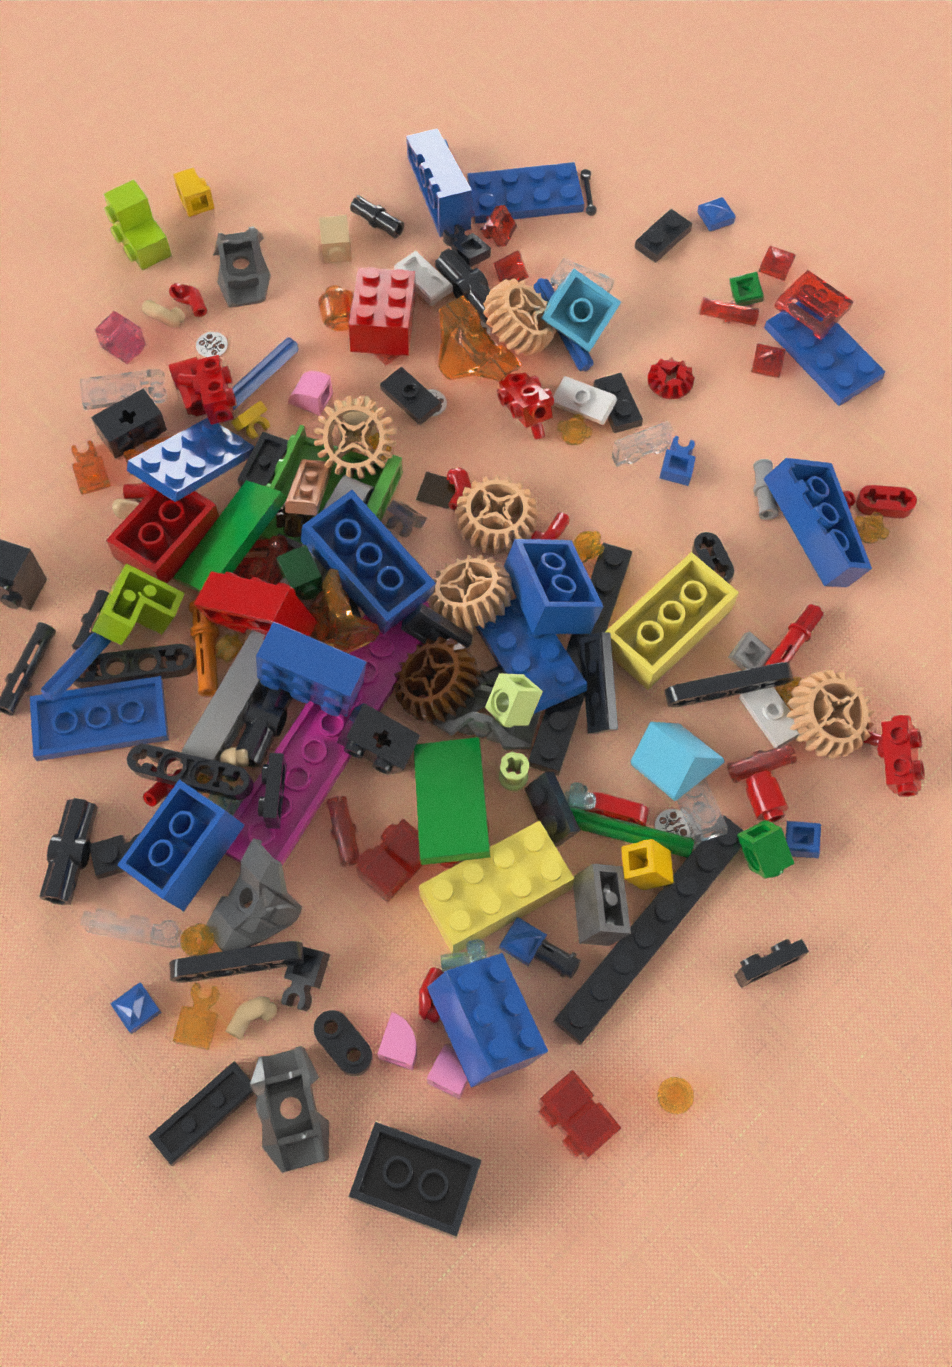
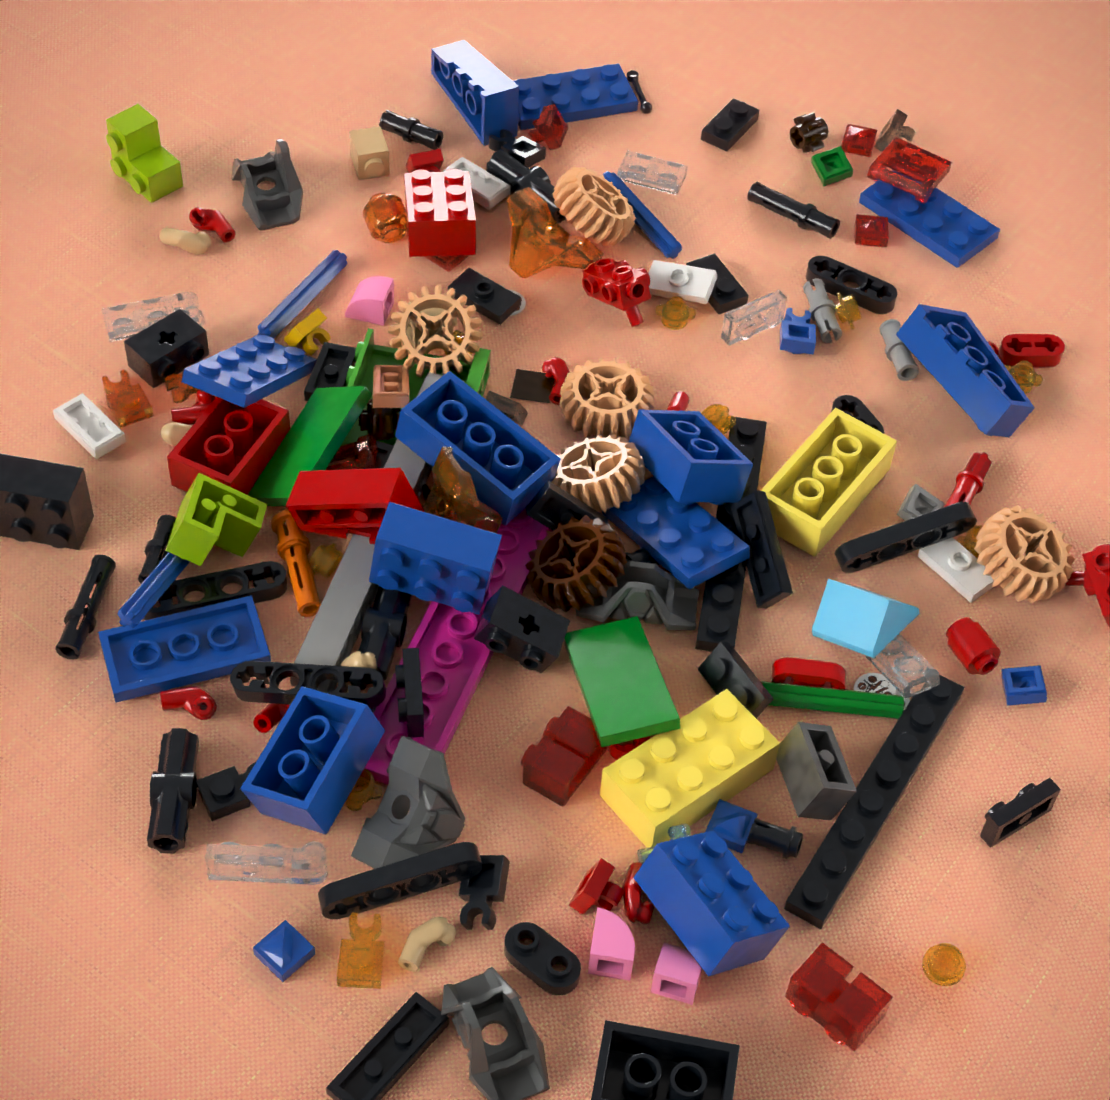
camera: 10 degrees left, 15 degrees down
(54, 493) = (89, 426): none -> white plate
(99, 767) = (191, 699): none -> red arm
(120, 337) = (141, 265): clear pink brick -> none
(189, 940) = (340, 859): clear yellow plate -> none
(192, 402) = (230, 302): red piece -> none
(193, 192) = (199, 121): yellow brick -> none
(211, 344) = (245, 267): white sticker -> none
(212, 384) = (263, 296): red brick -> none
(229, 870) = (369, 791): none -> clear yellow plate
(301, 573) = (404, 454): dark green brick -> none
(343, 830) = (497, 734): clear red pin -> none
(382, 255) = (427, 160): none -> red tile
(396, 988) = (596, 889): none -> red tile
(511, 267) = (569, 160): clear red tile -> none
(511, 780) = (685, 651): yellowish green bush -> none
(513, 700) = (672, 568): yellowish green brick -> none
(579, 797) = (766, 667): clear light blue arm -> none
(580, 309) = (660, 192): medium azure slope -> none
(647, 864) = (857, 724): yellow brick -> none
(674, 388) = (776, 264): red gear -> none
(705, 441) = (822, 310): none -> light grey pin
(710, 340) = (804, 215): none -> black pin
(716, 214) = (782, 100): blue tile -> none
(728, 443) = (848, 309): none -> clear yellow plate
(729, 311) = (839, 189): clear red pin -> none
(731, 253) = (809, 132): none -> dark brown gear
(741, 428) = (868, 300): none -> black beam
(761, 762) = (957, 610): clear red pin -> none
(766, 849) = (986, 696): green brick -> none
(810, 259) = (893, 129): none -> clear smoke tile

